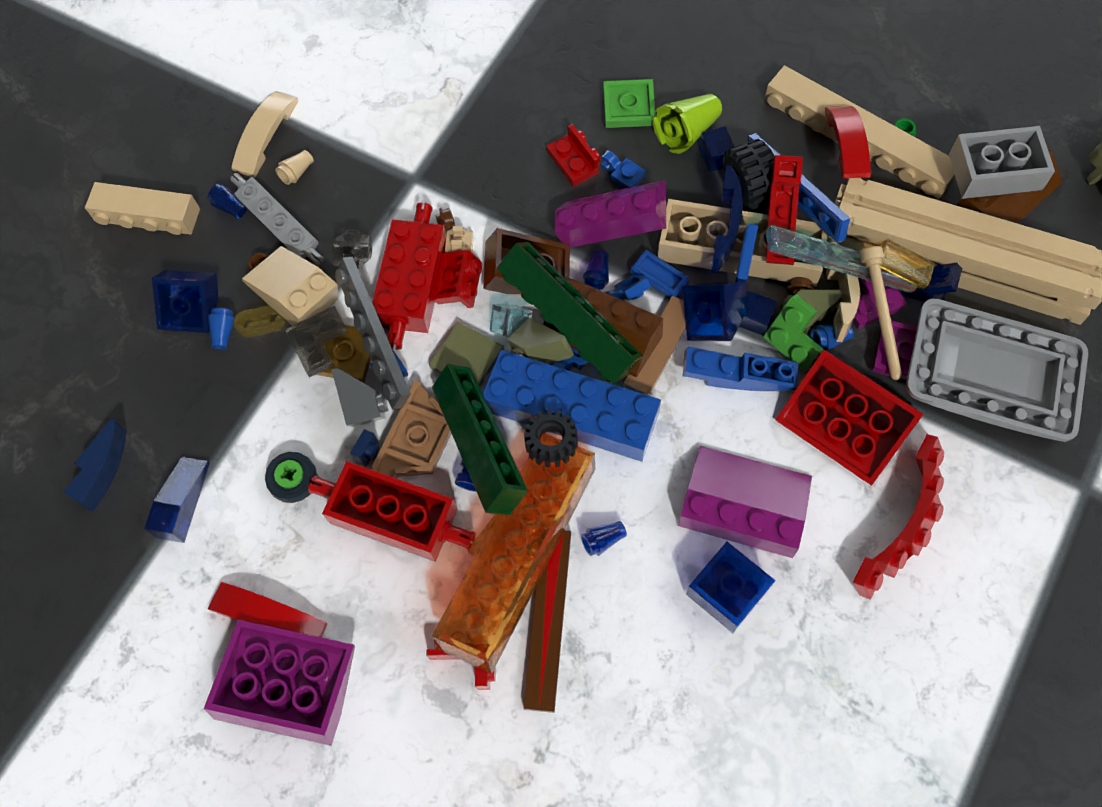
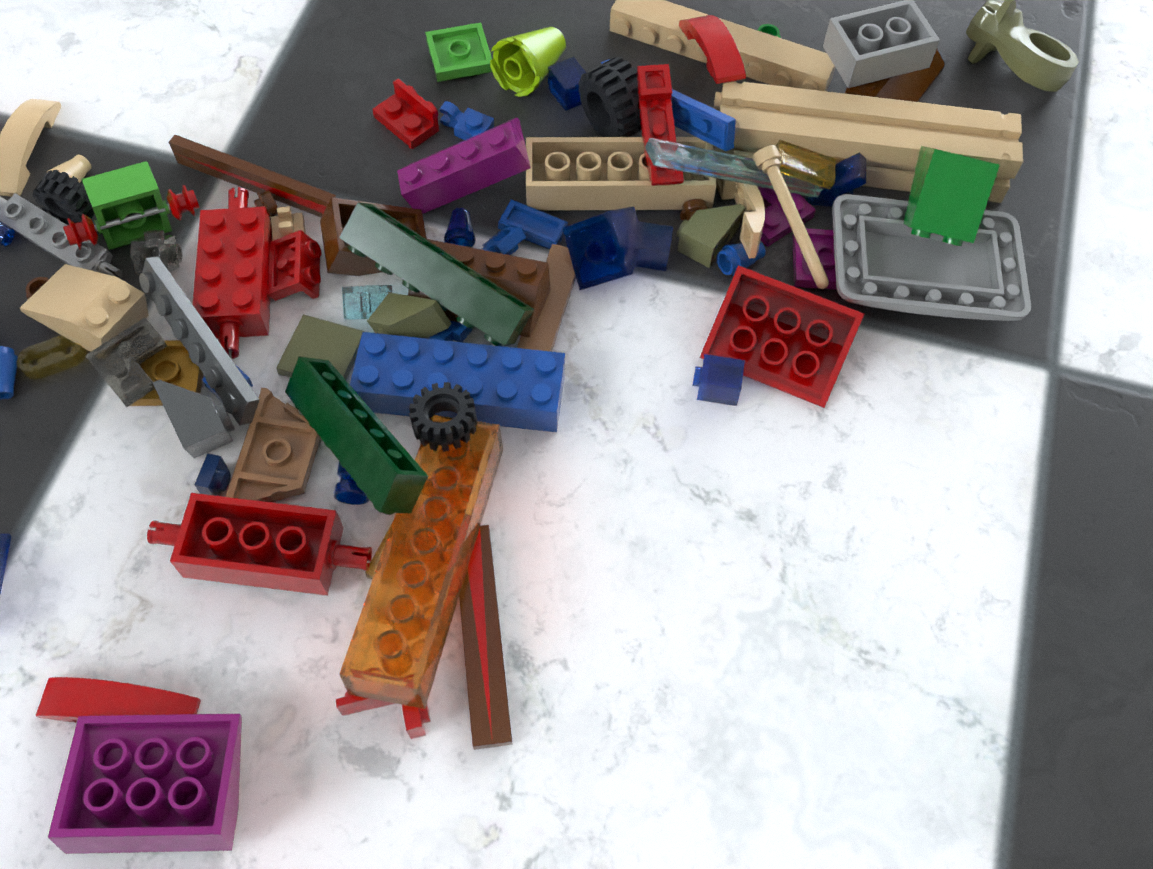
camera: 20 degrees left, 5 degrees down
(290, 190) = (63, 197): none -> black tyre
(296, 486) = (131, 540): black wheel -> none
(336, 207) = (126, 206): none -> bright green brick
(437, 192) = (250, 176): none -> reddish brown tile
(601, 538) = (527, 525): clear blue cone -> none
(730, 195) = (599, 121): clear blue slope -> none
(730, 587) = (691, 548): clear blue brick -> none
(746, 252) = (628, 175): blue tile -> none
(746, 372) = (654, 312): blue slope -> none
(746, 502) = (688, 453): magenta slope -> none
(786, 444) = (719, 379): none -> clear blue brick
(788, 333) = (692, 258): bright green plate -> none
(918, 529) = (887, 445): red piece -> none
(1027, 318) = (949, 195): none -> green slope

